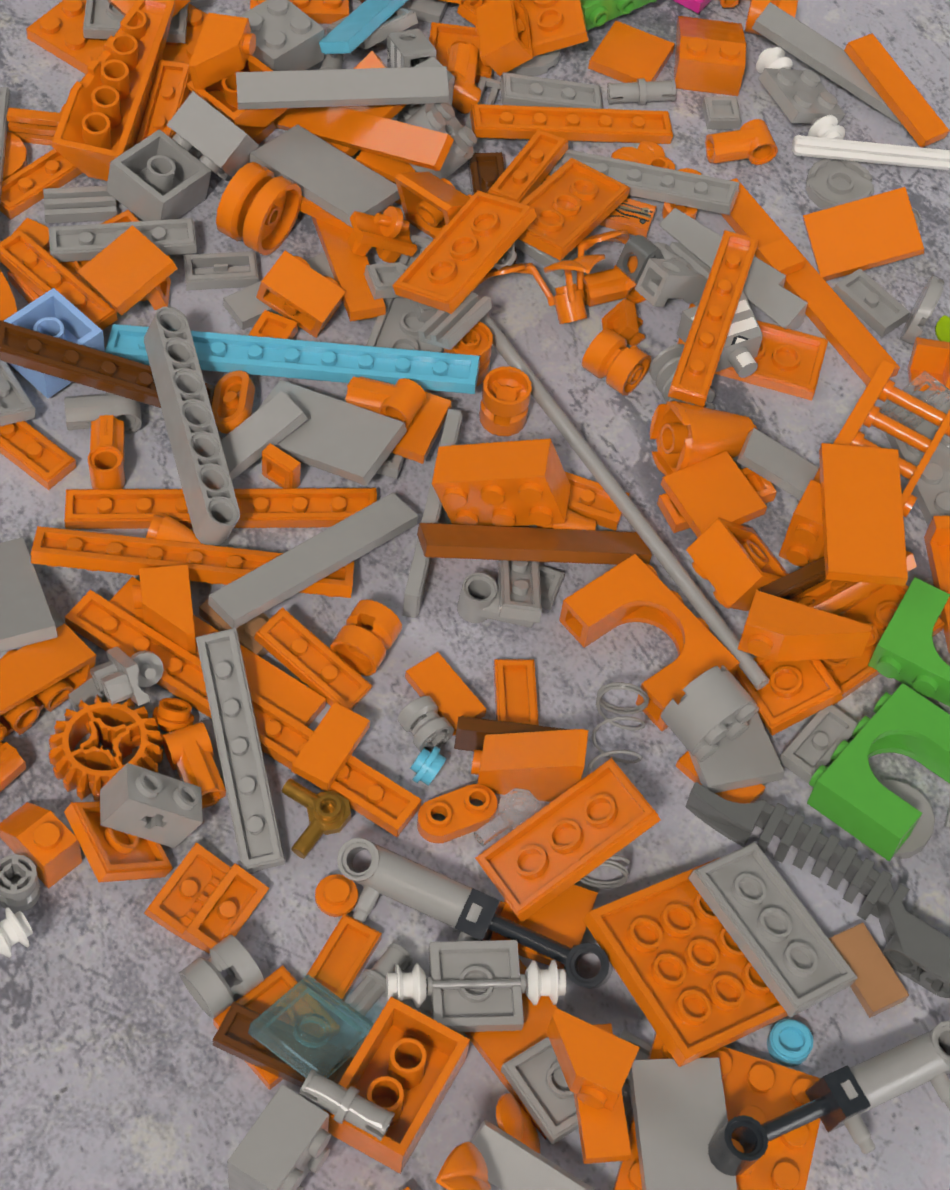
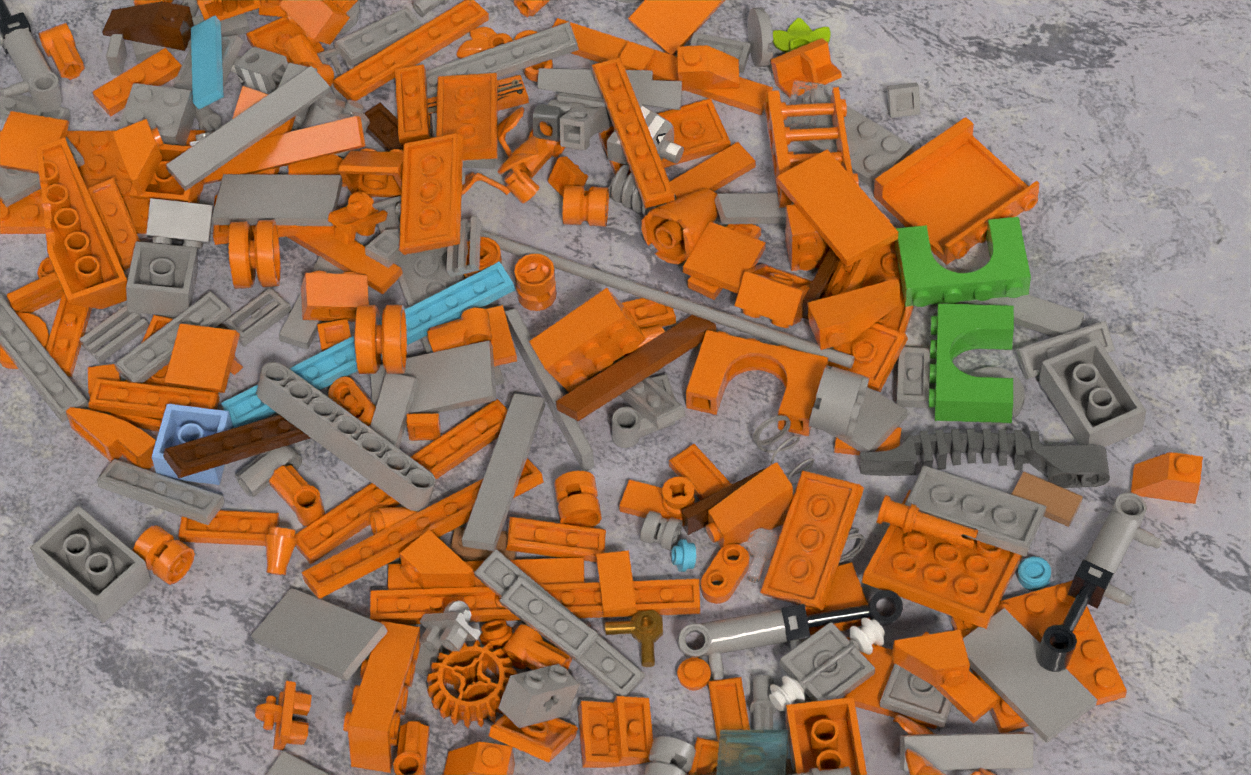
camera: 25 degrees left, 0 degrees up
(41, 493) = (279, 549): none -> orange cone
(229, 735) = (549, 618): none -> light grey tile
(294, 351) = (374, 339): none -> orange wheel
(460, 705) = (674, 504): none -> orange wheel
(691, 889) = (911, 519): none -> orange pin
(775, 411) = (714, 171): none -> orange tile
(842, 306) = (706, 68): none -> orange slope

